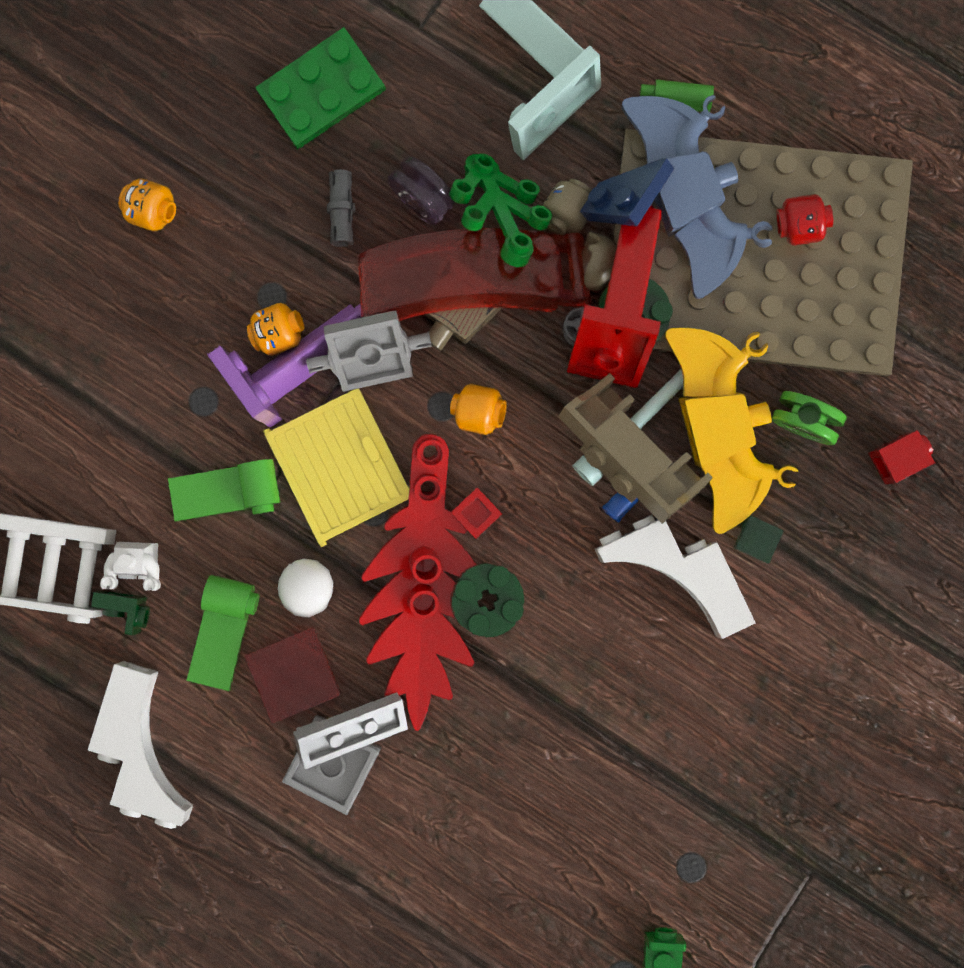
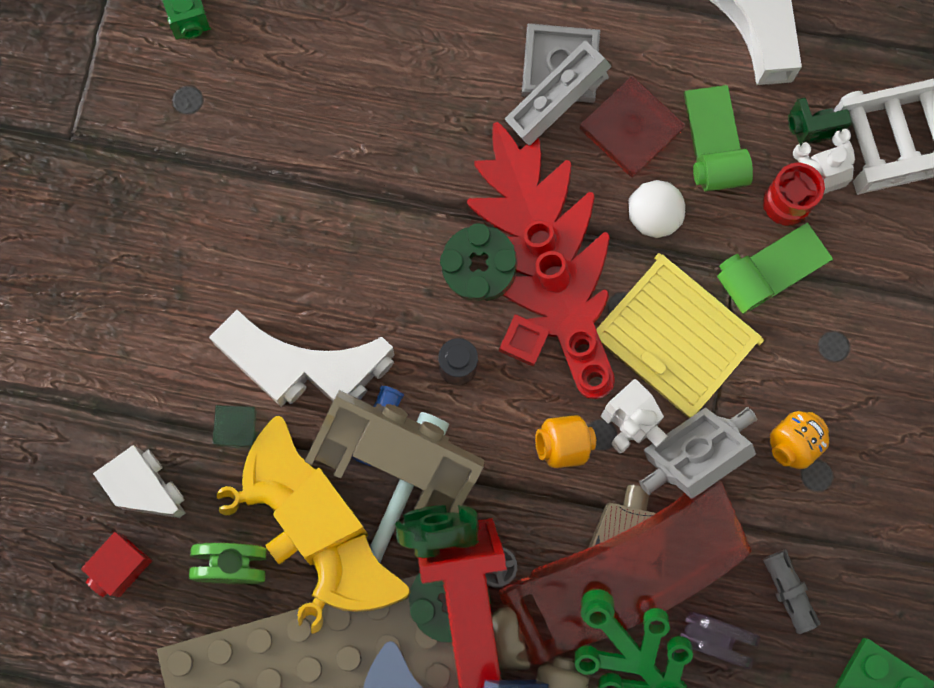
camera: 150 degrees right, 10 degrees down
(177, 548) = (793, 194): none -> red wheel
(279, 375) = (793, 365): medium lavender piece -> none
(407, 405) = (636, 416): none -> white piece
(544, 515) = (458, 361): none -> black brick
(624, 370) = (435, 528): none -> dark green plate
(860, 517) = (136, 486): none -> white slope

